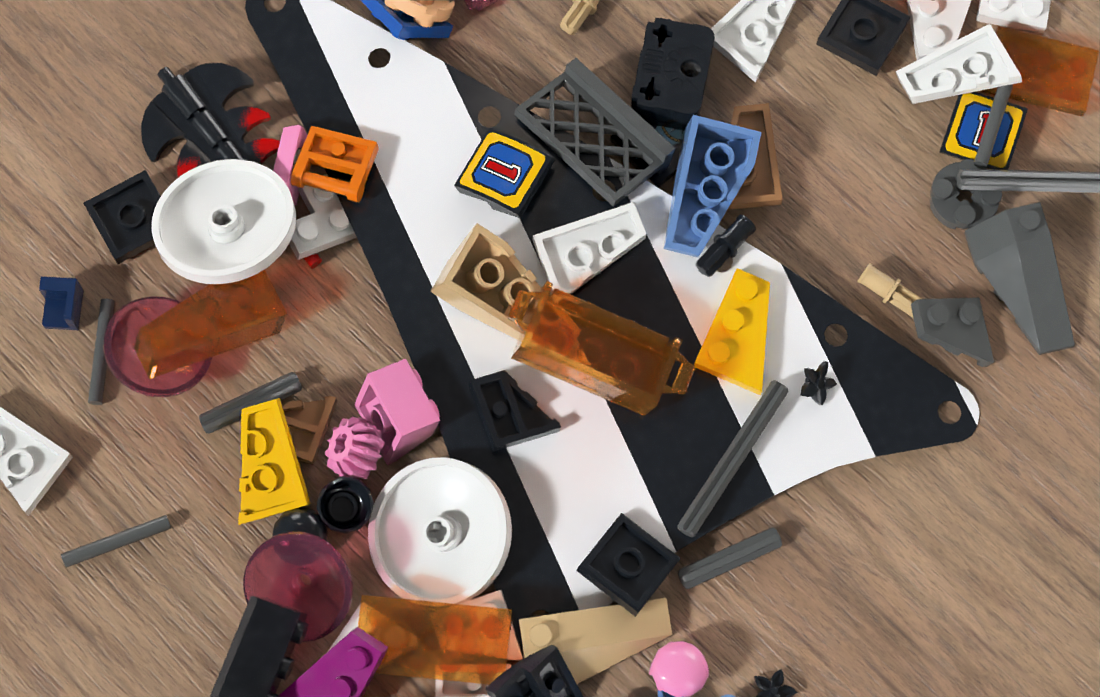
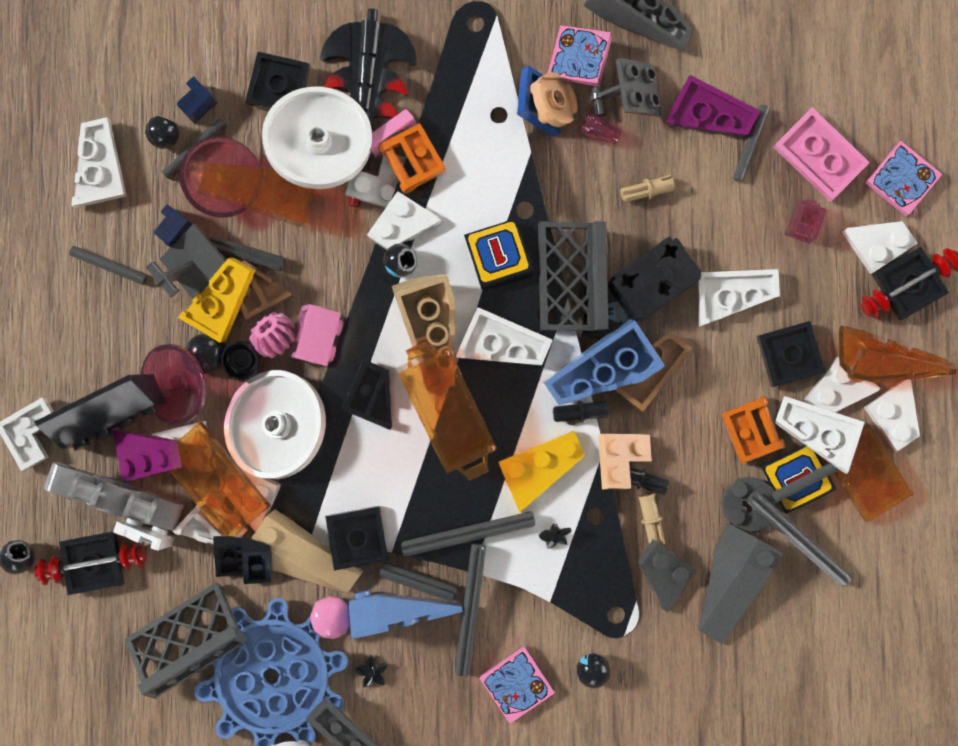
camera: 45 degrees right, 15 degrees up
(54, 360) = (162, 132): none -> black piece
(150, 442) = (172, 226): none -> dark blue panel
(203, 456) = (190, 262): none -> dark grey plate
(381, 229) = (401, 222): none -> white wing
(415, 260) = (400, 260): none -> black piece
(727, 611) = (378, 611): none -> medium blue wedge
(800, 256) = (616, 454): none -> light nougat plate
(808, 532) = (470, 609): none -> dark grey axle
(843, 263) = (648, 481): none -> black axle
(895, 135) = (745, 433): none -> orange plate
(924, 566) = (516, 684): none -> tile
(982, 478) = (593, 670): none -> black piece

